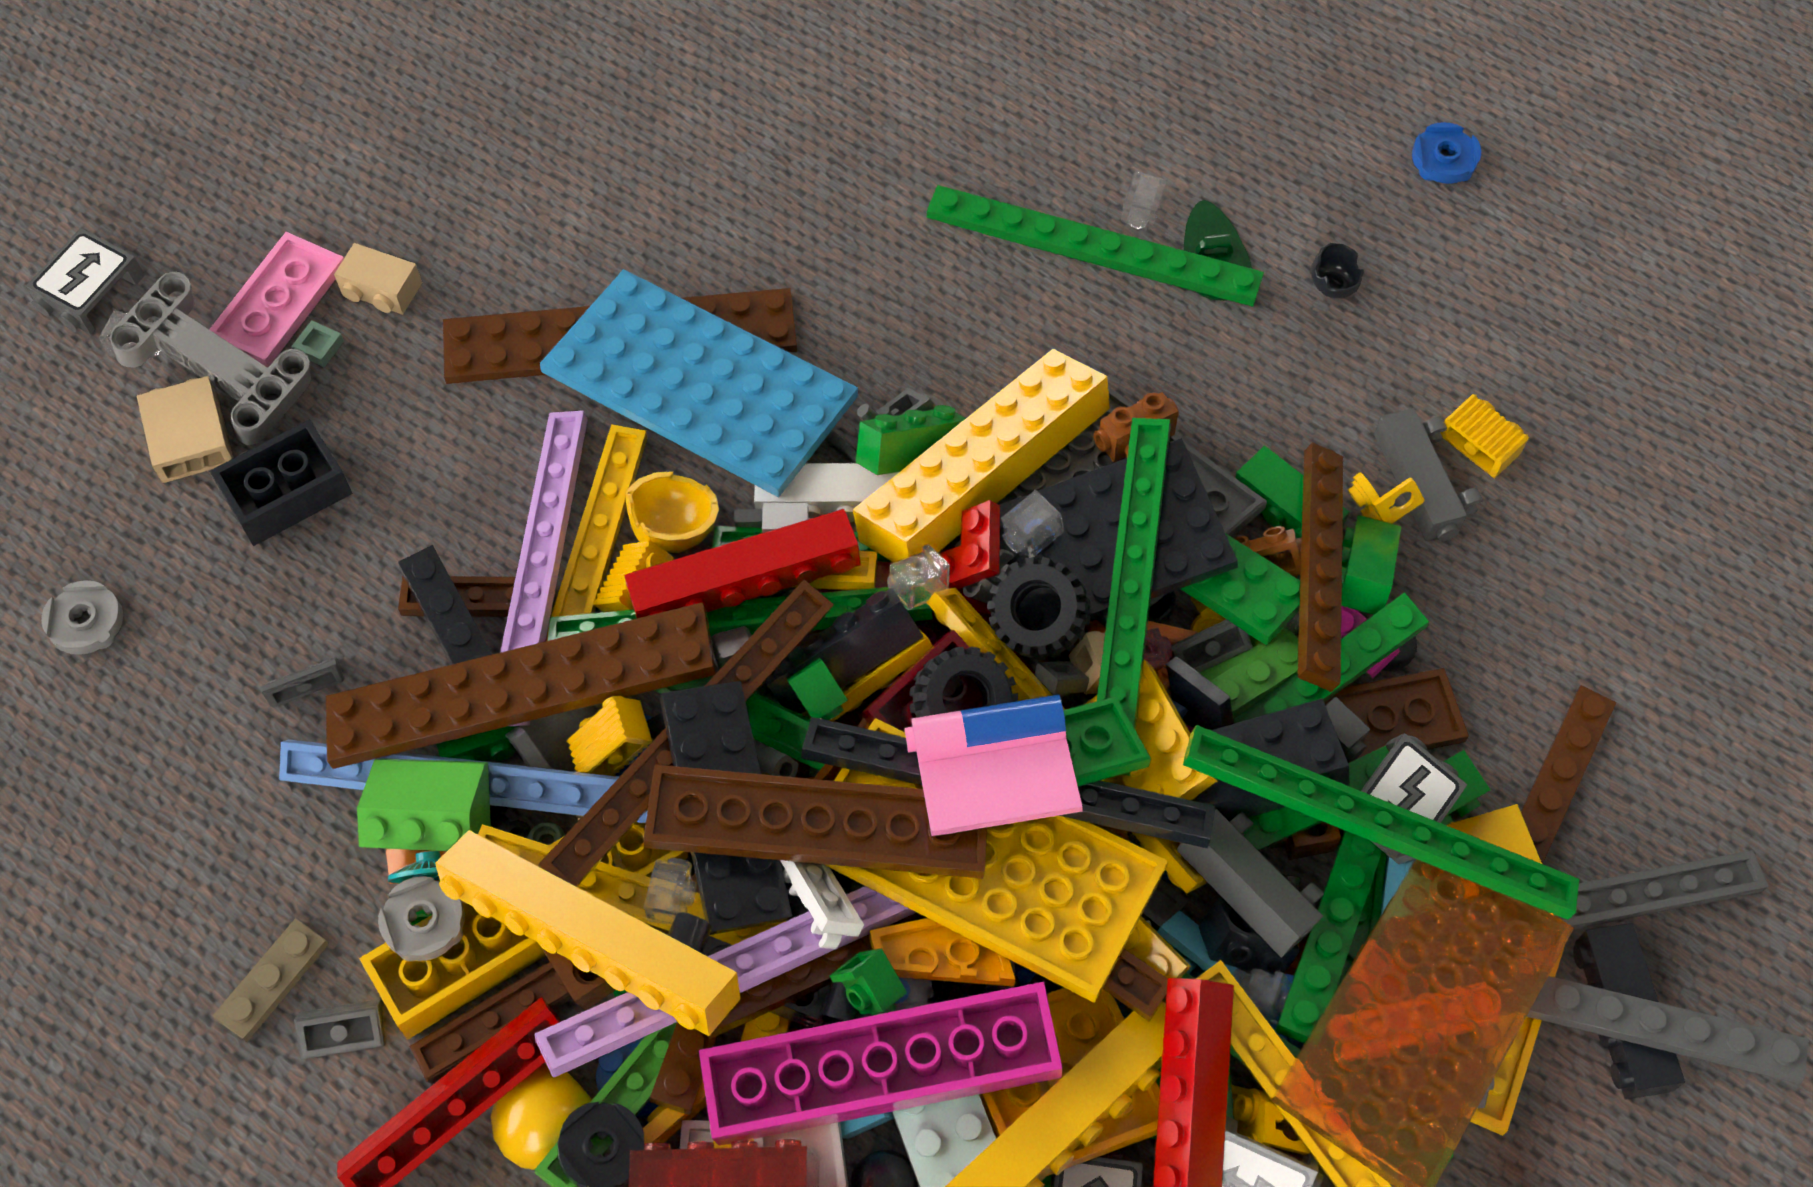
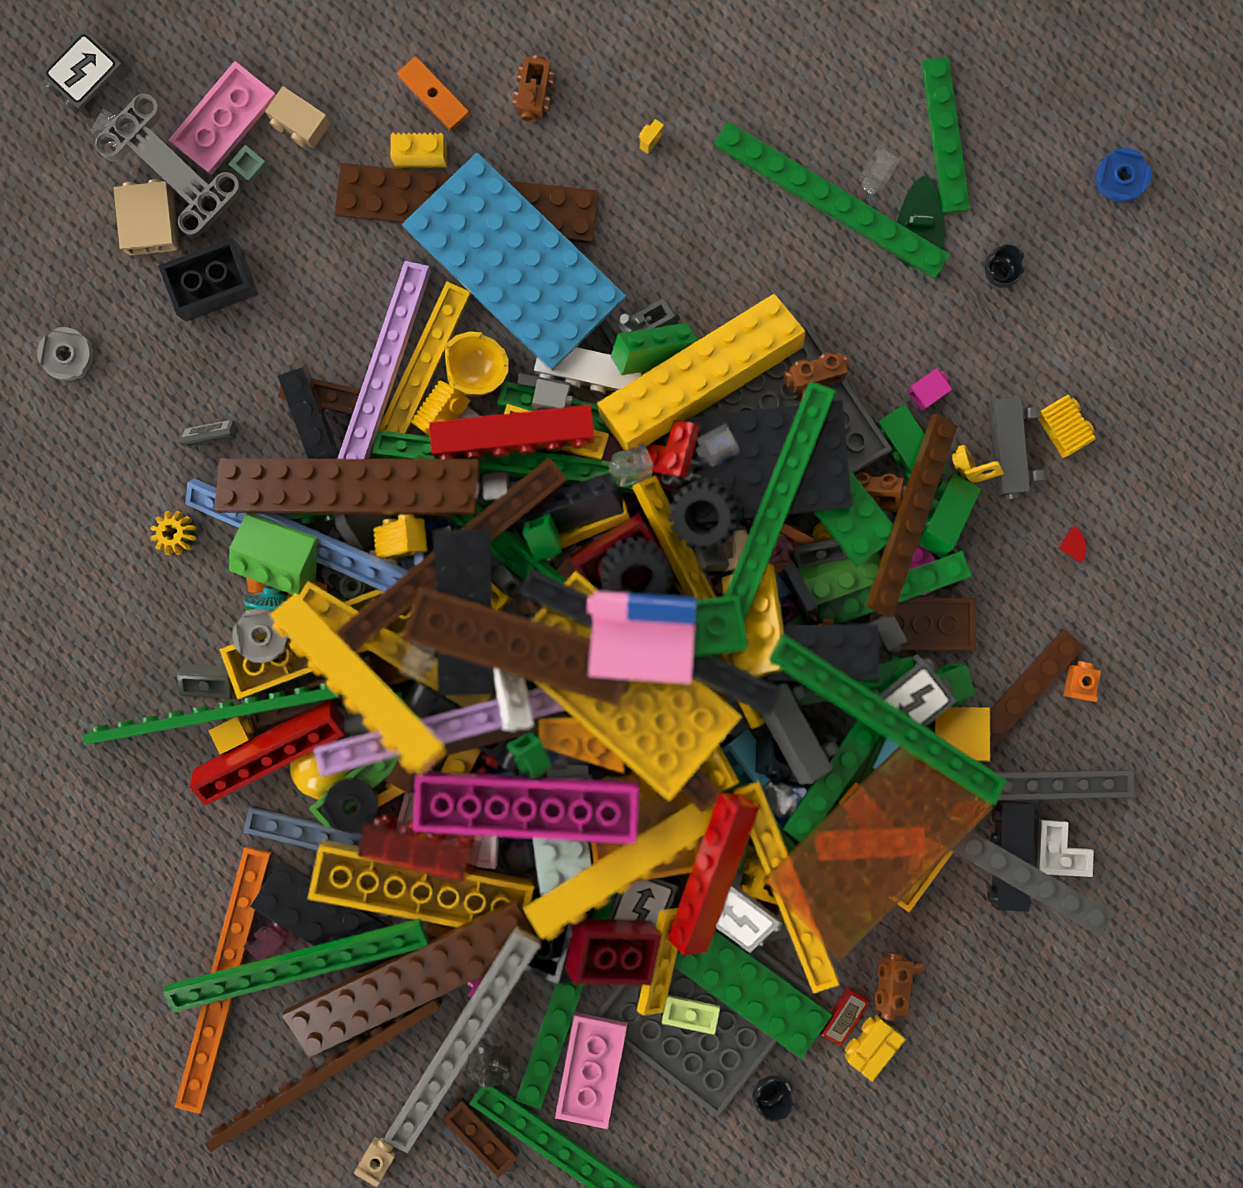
camera: 15 degrees right, 25 degrees up
(251, 826) = (180, 538): none -> yellow gear
(270, 980) = (166, 640): dark tan plate -> none
(350, 1068) = (203, 714): none -> green plate
(391, 1090) = (232, 733): none -> yellow brick
(545, 284) = (418, 150): none -> yellow brick
(552, 223) = (423, 84): none -> orange tile
(681, 187) = (532, 98): none -> dark orange brick
(844, 216) = (650, 135): none -> yellow plate
(1214, 155) = (945, 135): none -> green plate
(1290, 428) = (929, 389): none -> dark pink brick
(1551, 578) = (1074, 544): none -> red tile
(1630, 758) = (1074, 687): none -> orange brick
(1683, 986) = (1055, 857): none -> white plate

